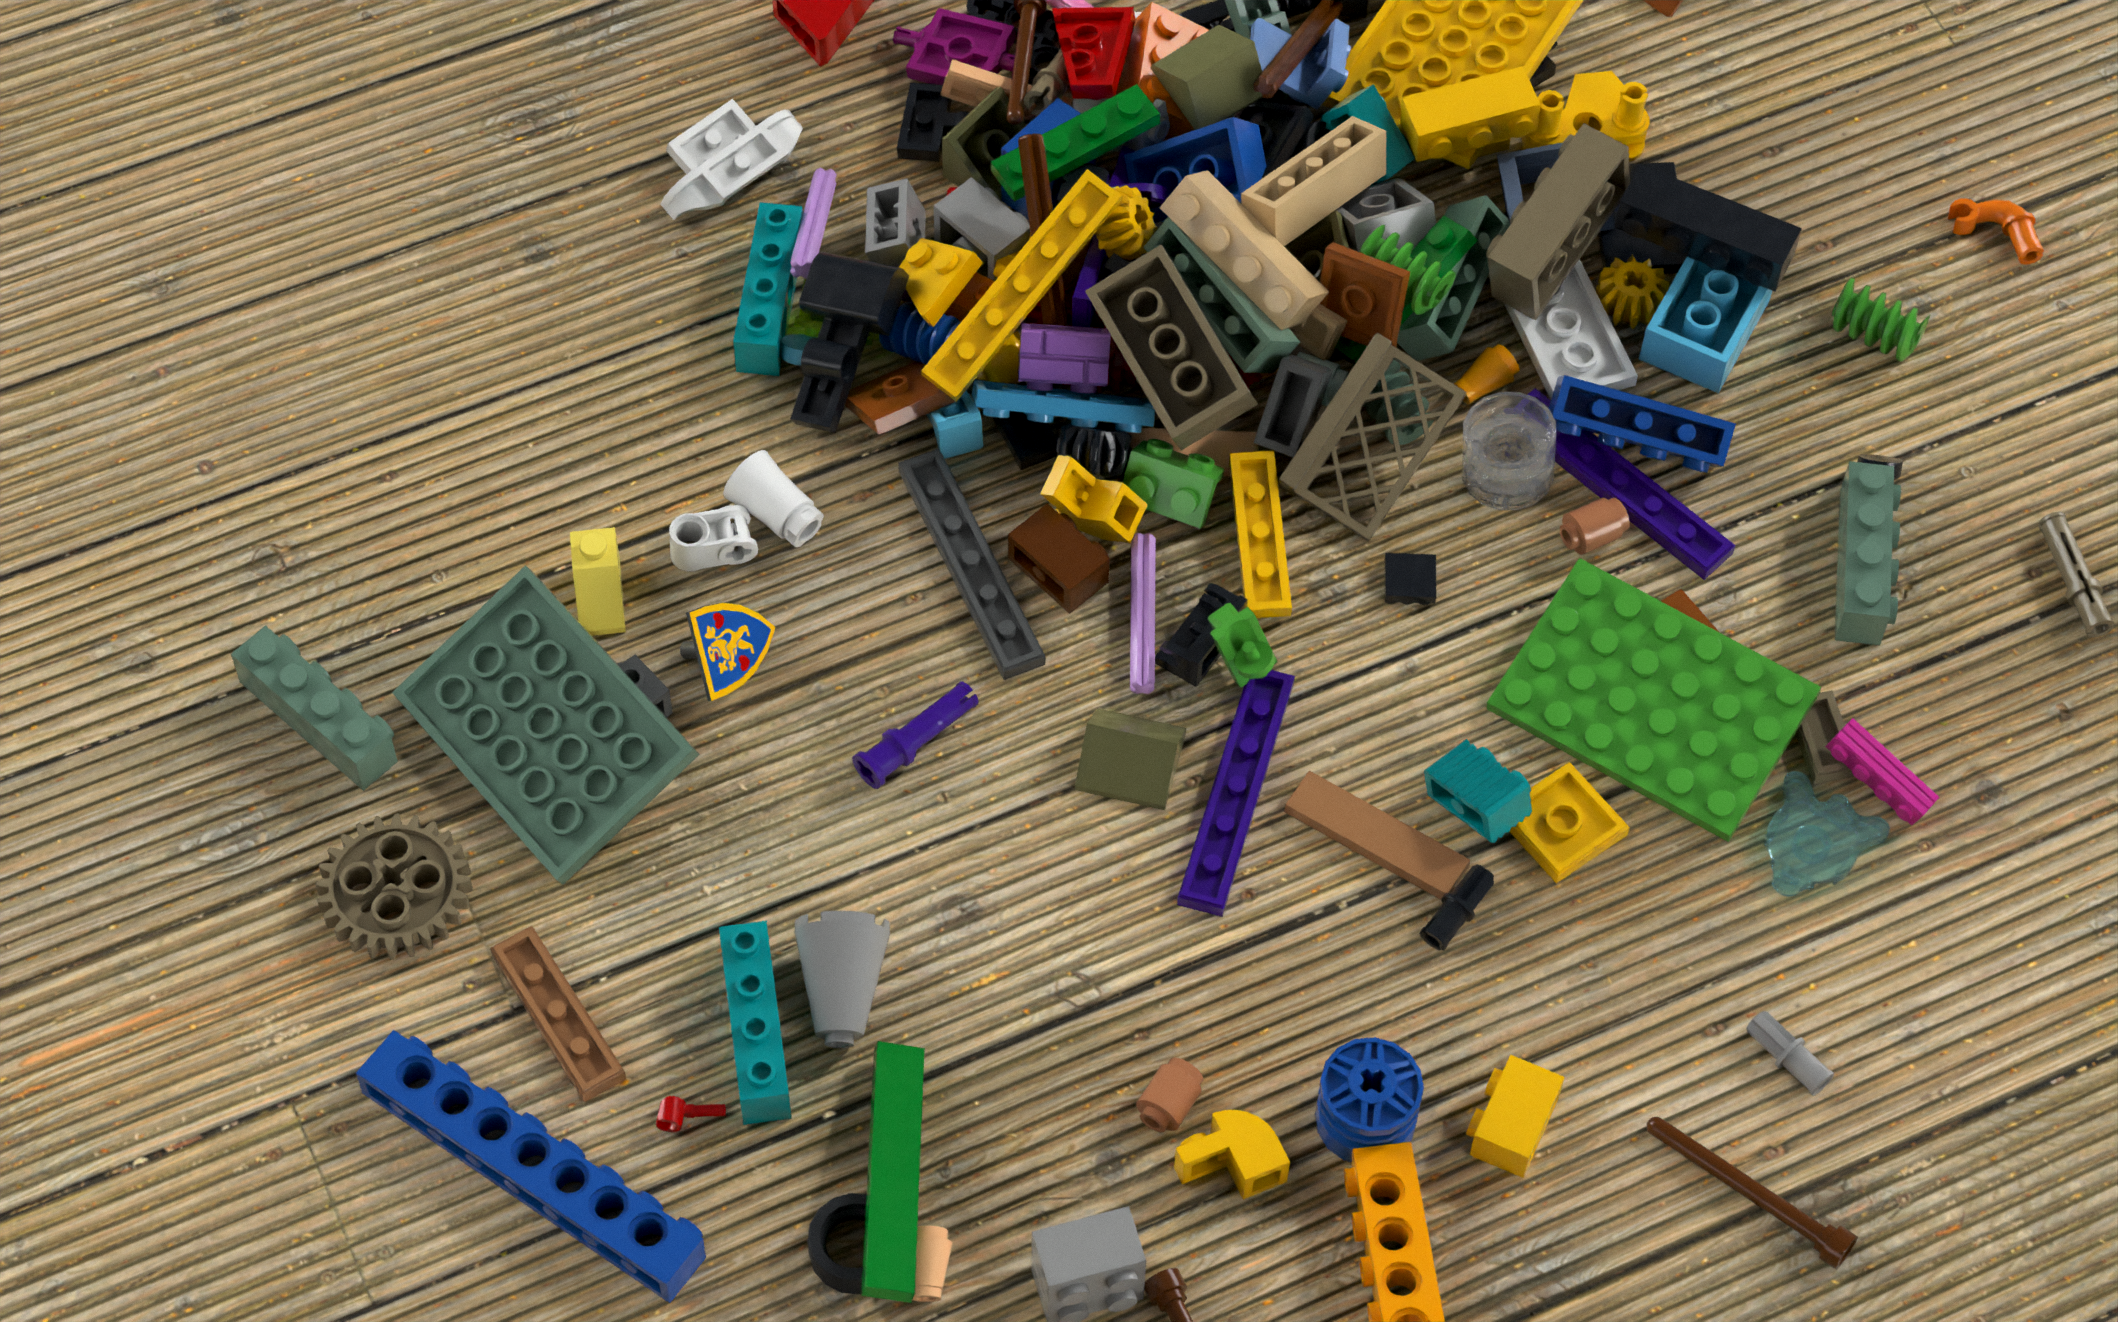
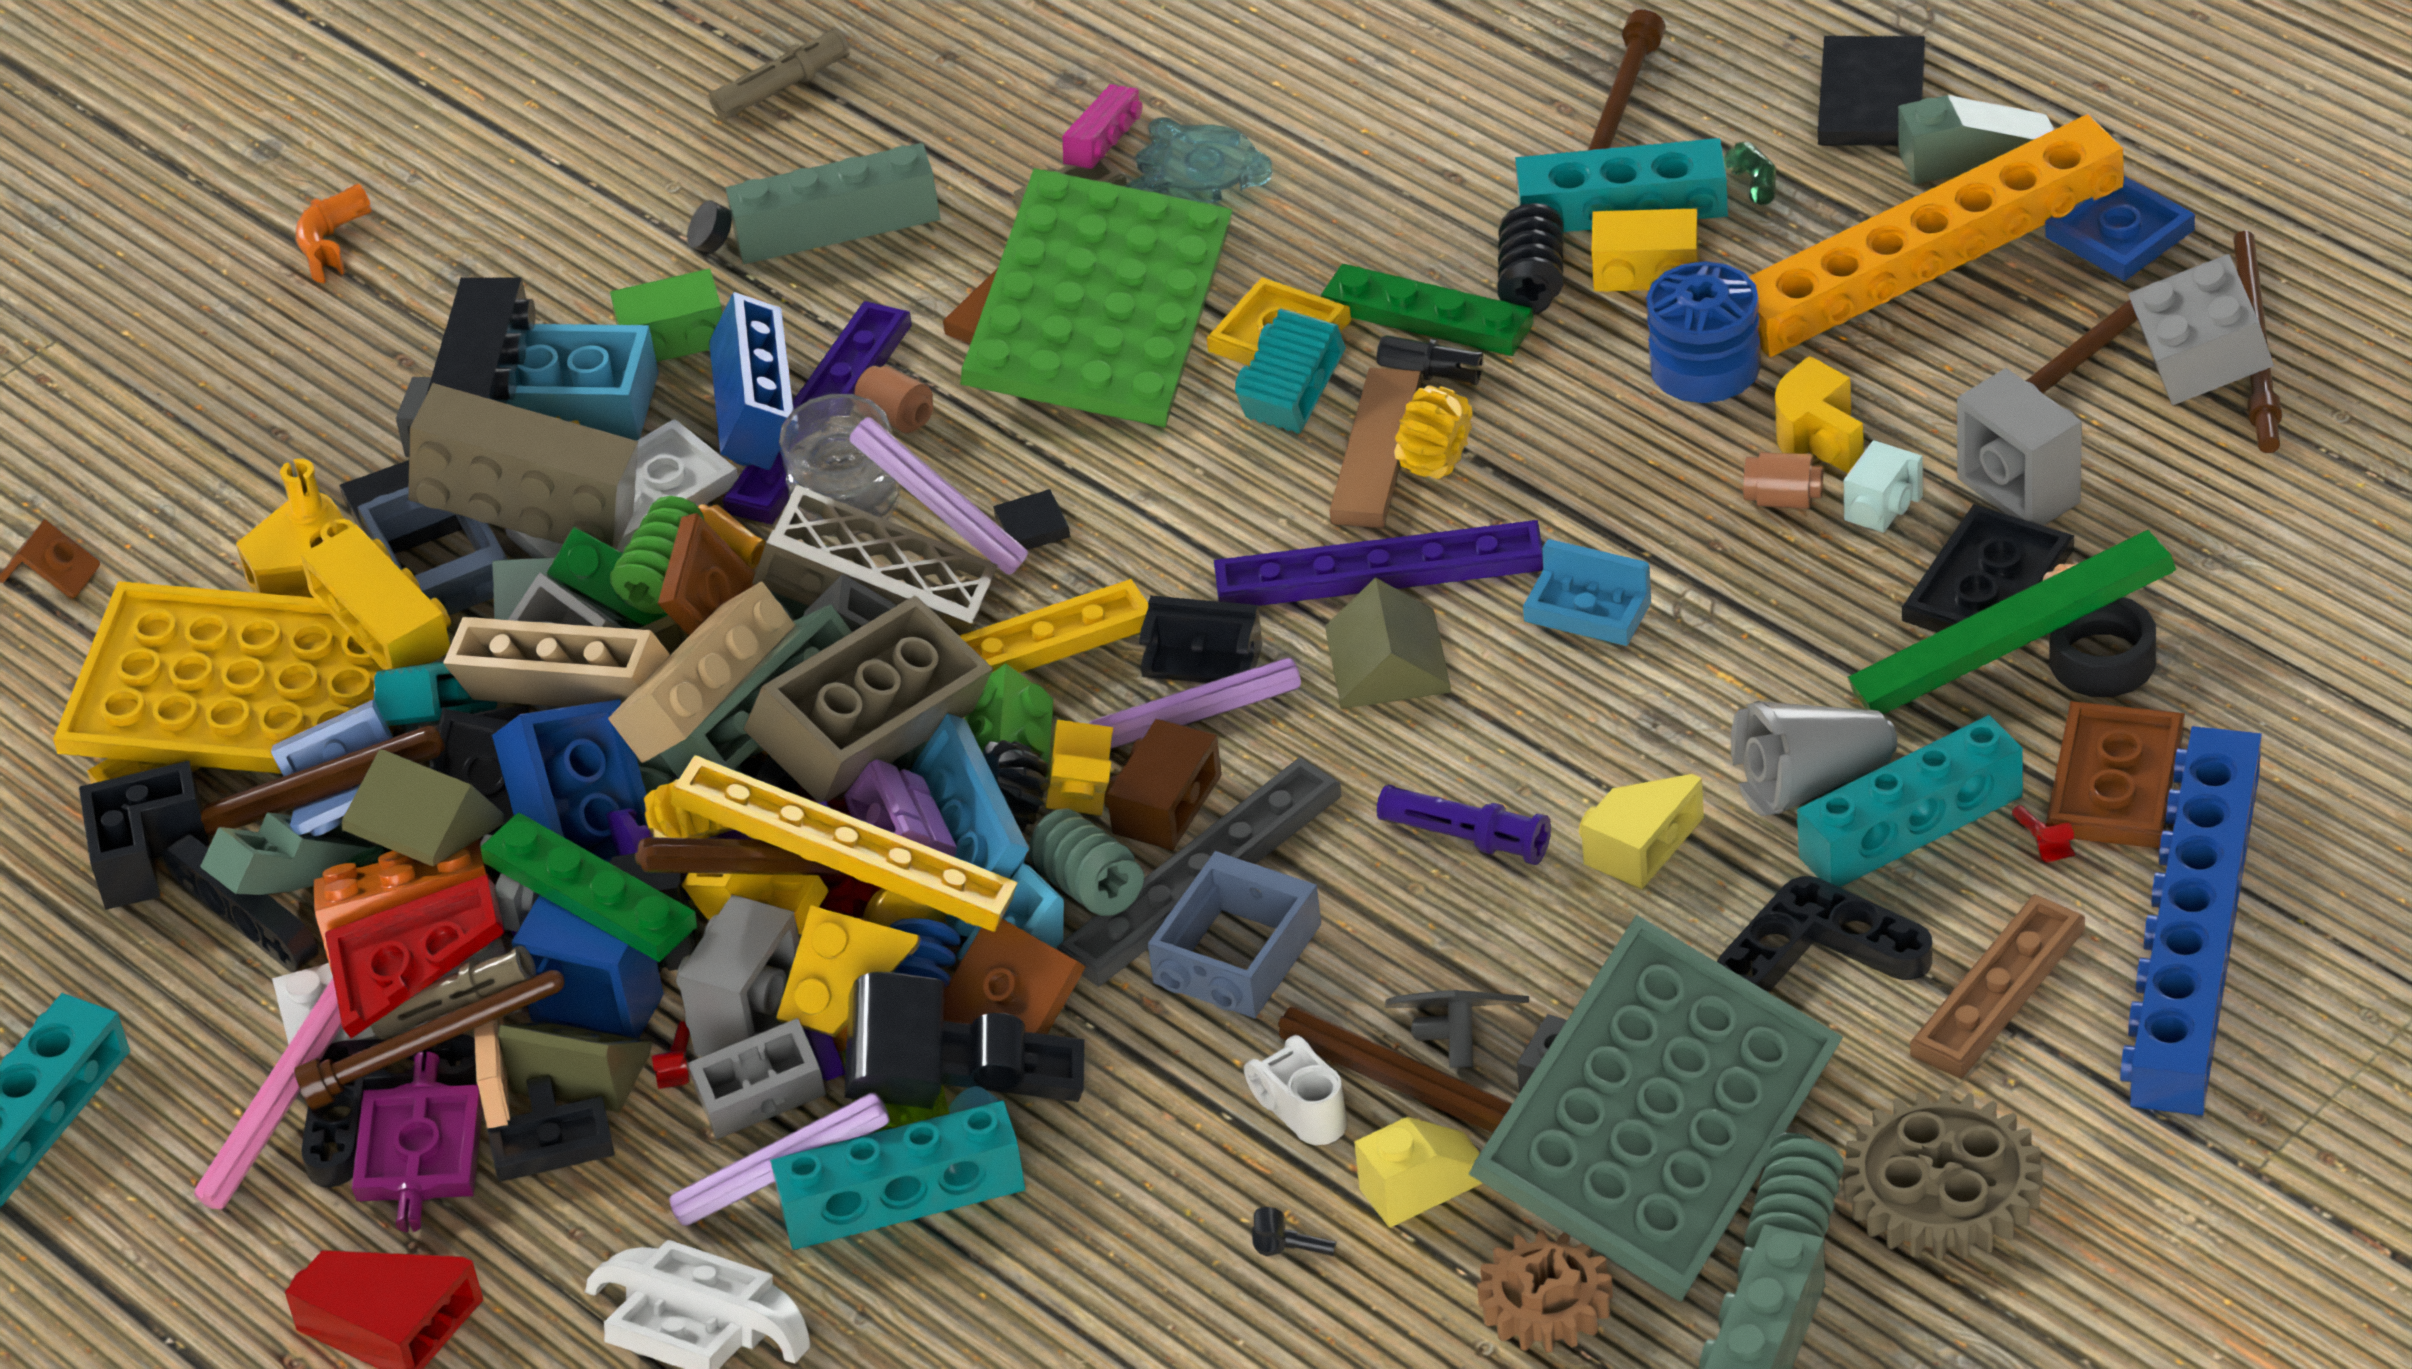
camera: 105 degrees left, 15 degrees down
(423, 784) = (1796, 1187): none -> sand green piece
(444, 605) = (1545, 1291): none -> medium nougat gear
(599, 483) = (1272, 1237): none -> black hand
(675, 621) = (1395, 1069): none -> reddish brown axle
(686, 908) = (1807, 925): none -> black beam
(724, 1192) = (2116, 773): none -> dark orange tile
(773, 499) = (1211, 1056): white plant -> none
(836, 835) = (1641, 827): none -> light yellow slope
(902, 580) = (1230, 887): none -> sand blue window
(985, 1205) = (1983, 565): none -> black tile
(990, 469) = (1085, 862): none -> sand green piece
(1106, 903) = (1589, 593): none -> dark azure bracket
(1122, 1162) = (1882, 485): none -> light aqua brick
(1241, 643) = (1224, 562): bright green hips -> none
(1346, 860) = (1433, 432): none -> yellow gear
(1426, 492) = (938, 495): none -> lavender axle
(1533, 936) = (1430, 309): none -> green plate
(1546, 1022) = (1530, 256): none -> black piece
(1596, 1202) = (1626, 179): none -> teal brick
(1598, 1259) = (1762, 171): none -> clear green arm
(1769, 407) = (678, 310): none -> bright green brick
(1789, 1052) = (1456, 111): light grey axle -> none
(1878, 321) = (518, 251): bright green piece -> none

